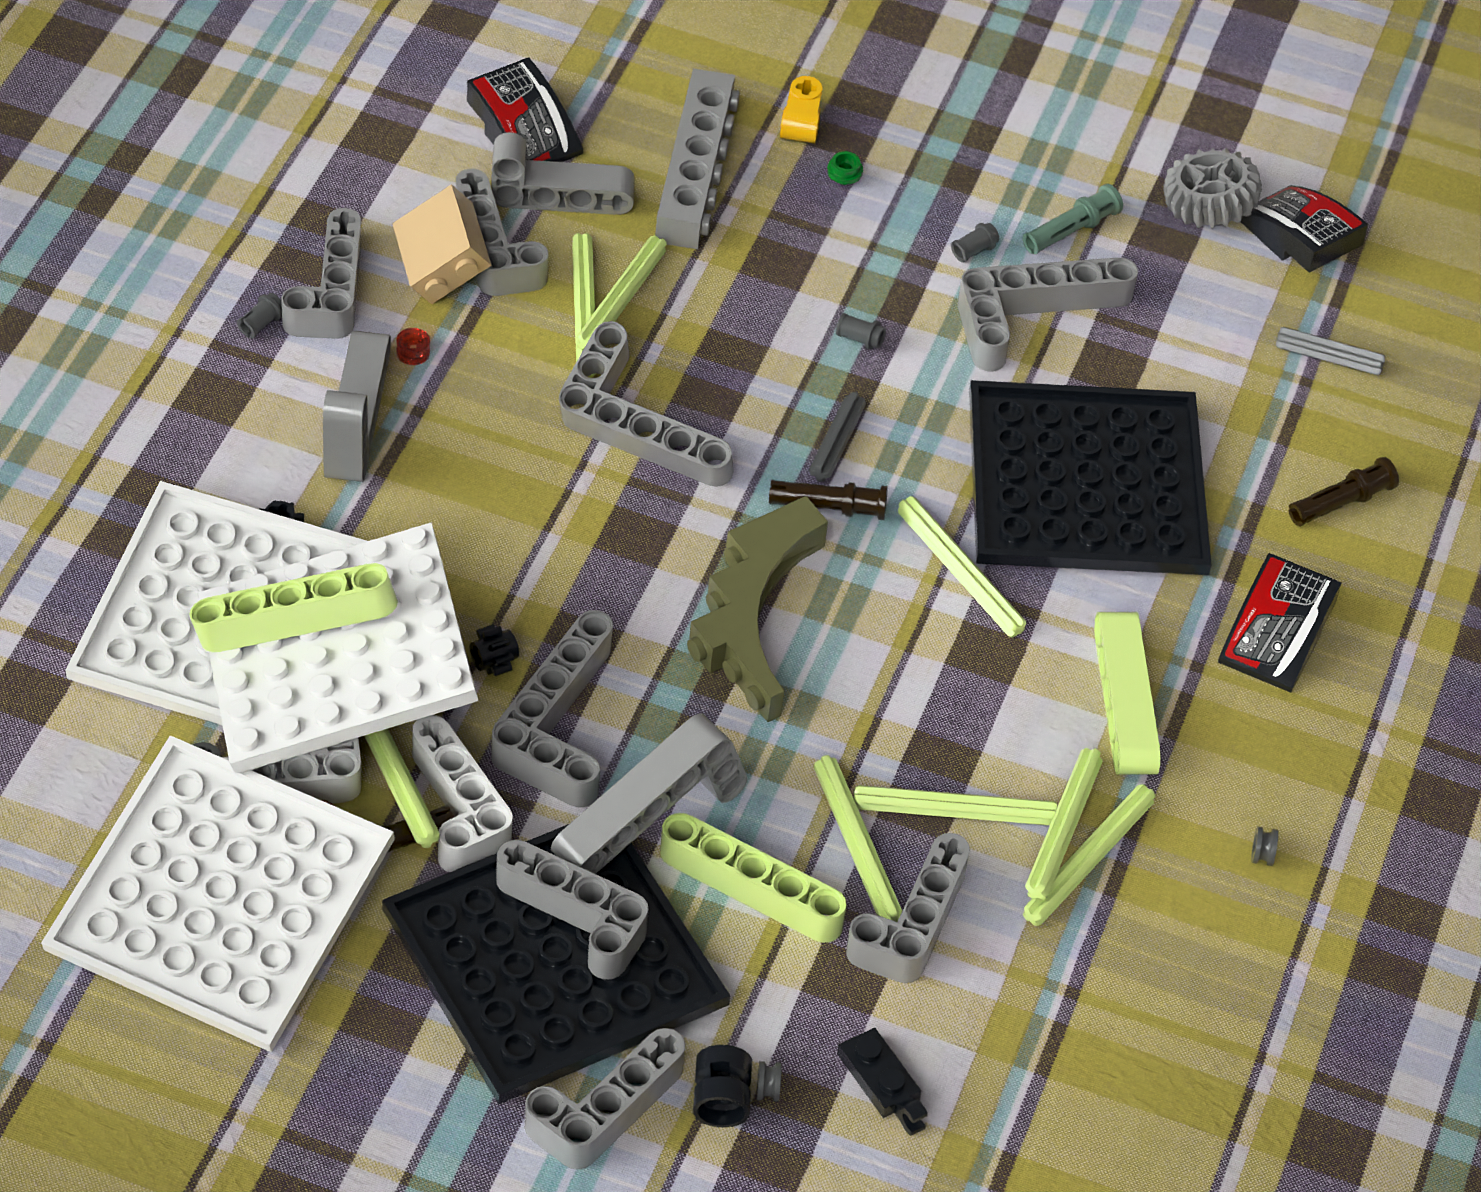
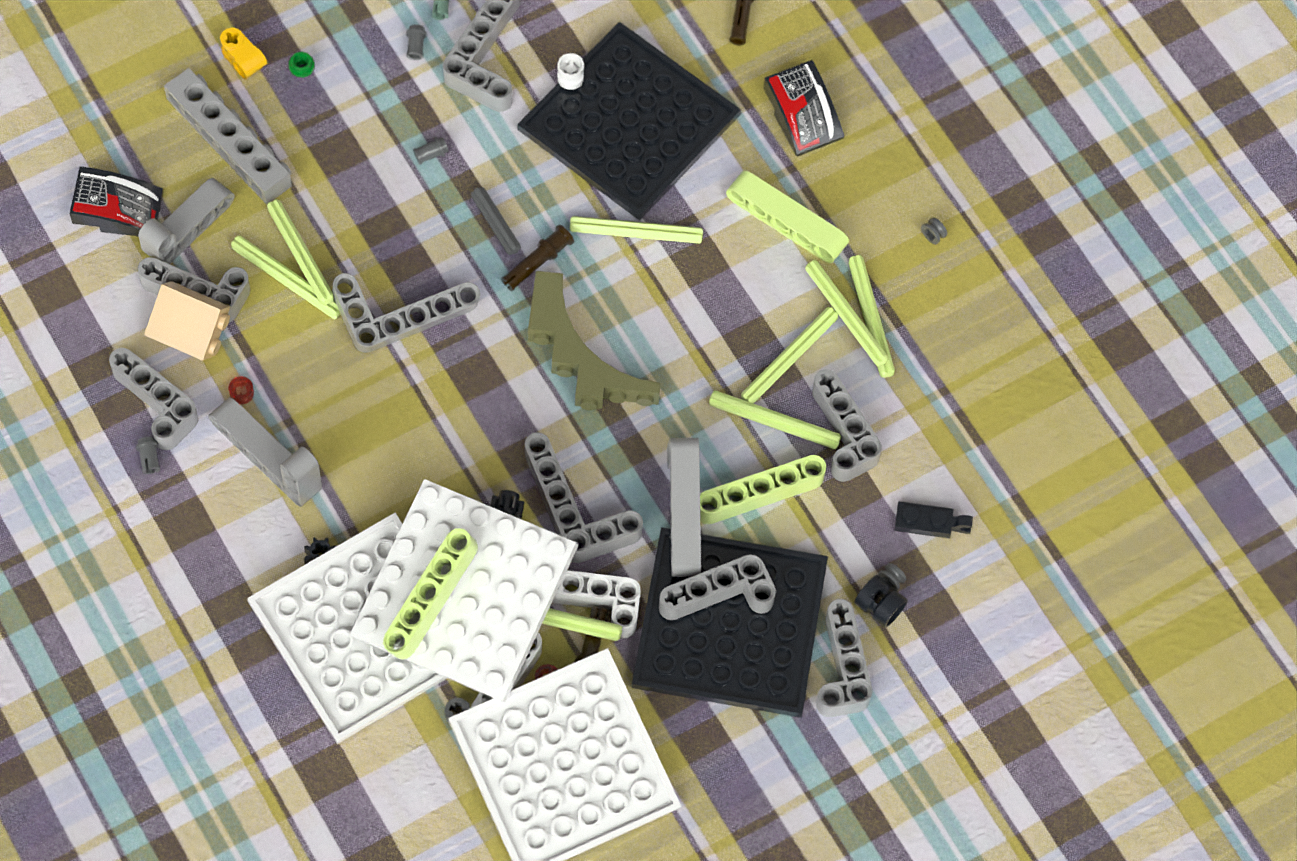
camera: 50 degrees left, 15 degrees up
(1080, 378) = (570, 71): none -> white wheel

